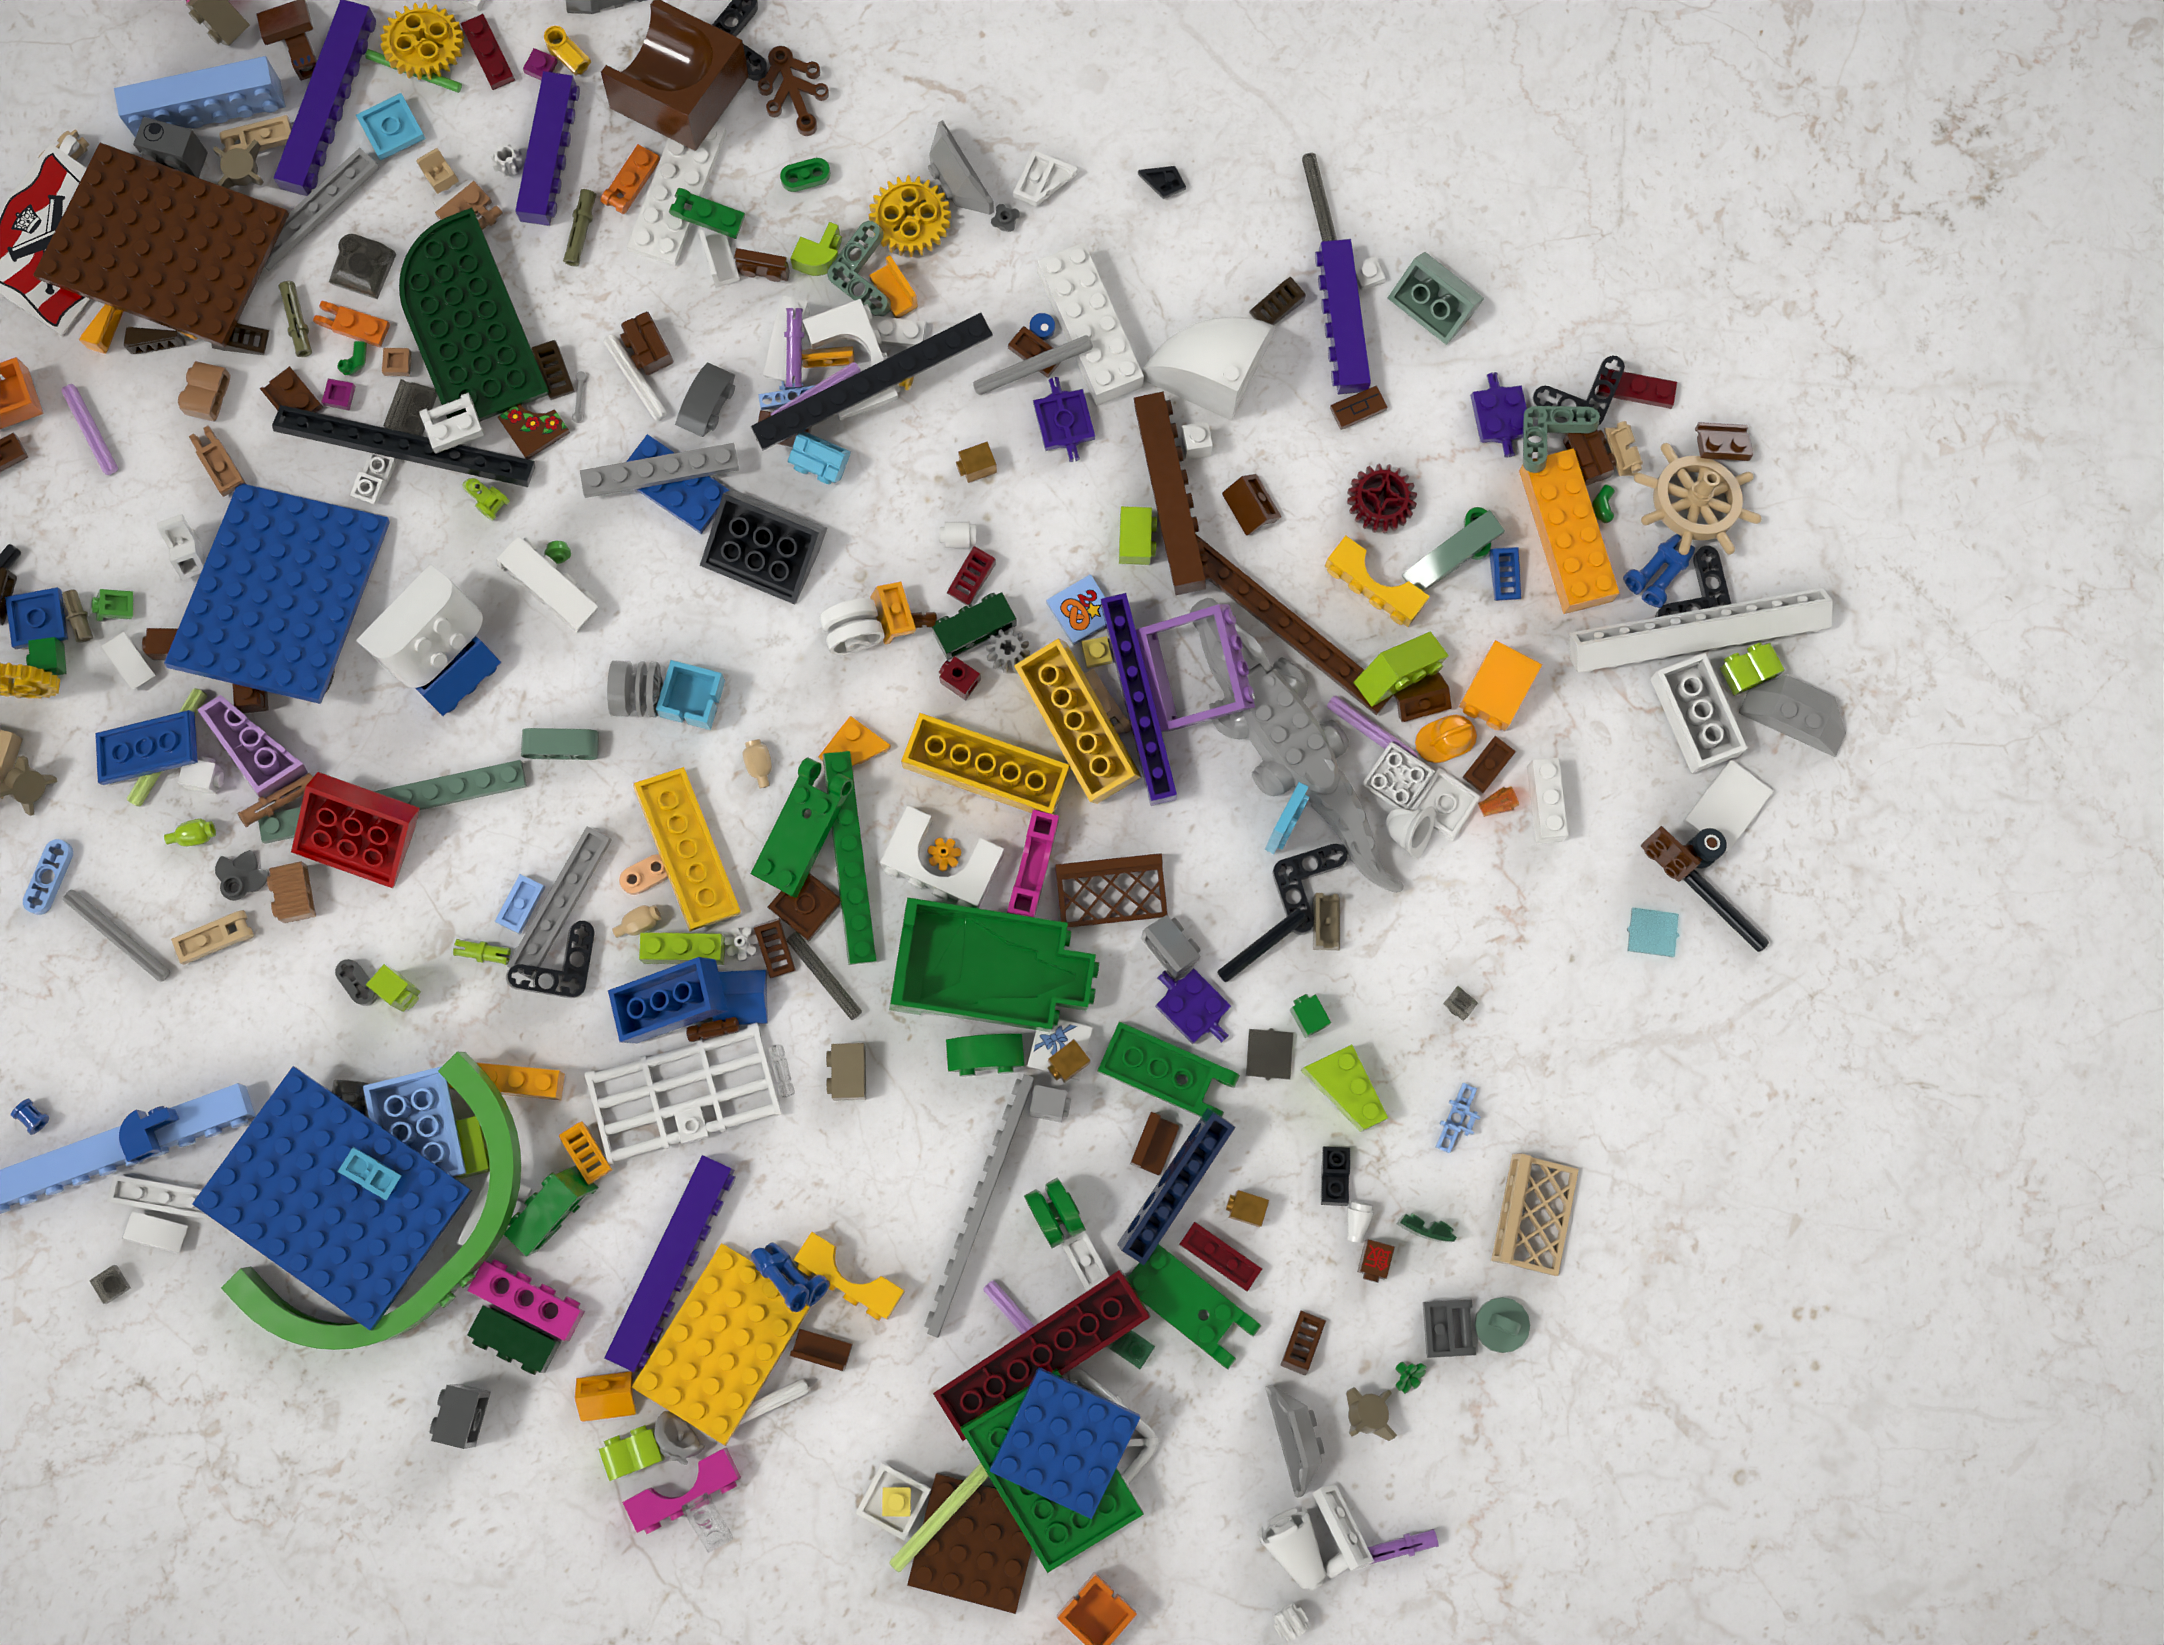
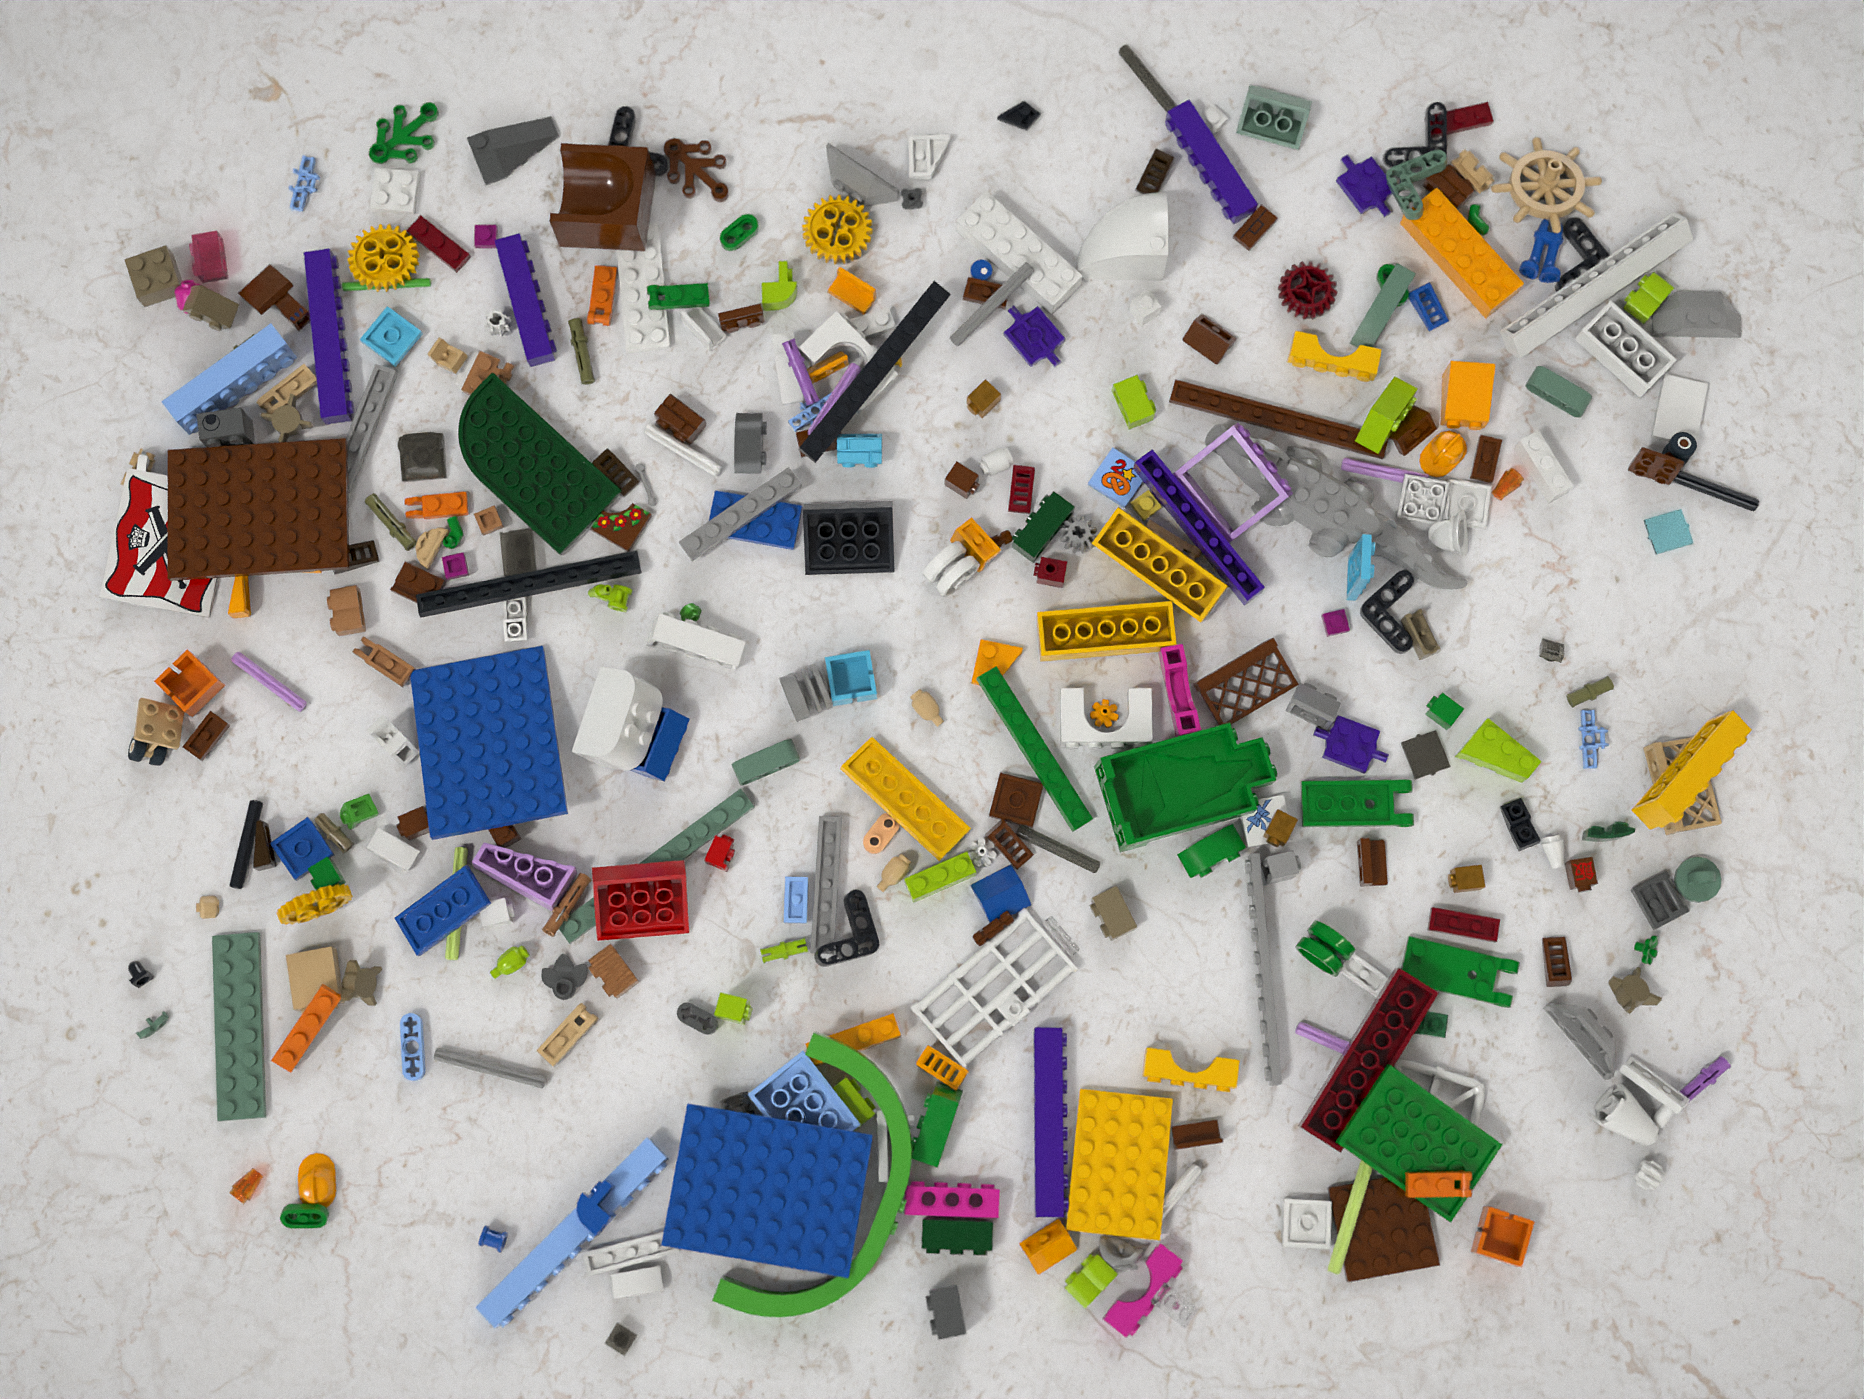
camera: 20 degrees left, 0 degrees up
(149, 340) = (281, 590): dark brown slope -> none
(322, 361) = (429, 545): none -> tan plate
(369, 1173) = (790, 1157): medium azure slope -> none
(455, 429) = (563, 554): white plate -> none
(465, 817) = (720, 852): none -> red brick
(566, 50) = (503, 216): yellow piece -> none
(667, 1000) = (951, 921): blue brick -> none
(773, 1262) = (1159, 1097): blue piece -> none
(798, 840) = (988, 754): green hinge -> none
(851, 268) = (812, 289): sand green beam -> none
(896, 1501) = (1311, 1222): light yellow plate -> none
(912, 538) = (962, 480): none -> reddish brown brick
(1051, 1524) = (1438, 1184): none -> orange plate
(1065, 1443) = (1420, 1117): blue plate -> none
(1170, 494) = (1145, 357): reddish brown brick -> none
(1175, 1186) = (1407, 885): dark blue brick -> none
(1240, 868) = (1335, 622): none -> magenta plate
(1262, 945) = (1381, 673): black axle -> none
(1481, 1067) = (1590, 691): none -> olive pin
(1546, 1202) = (1692, 770): none -> yellow brick
(1604, 727) = (1558, 391): none -> sand green beam
(1724, 441) = (1545, 132): plate -> none

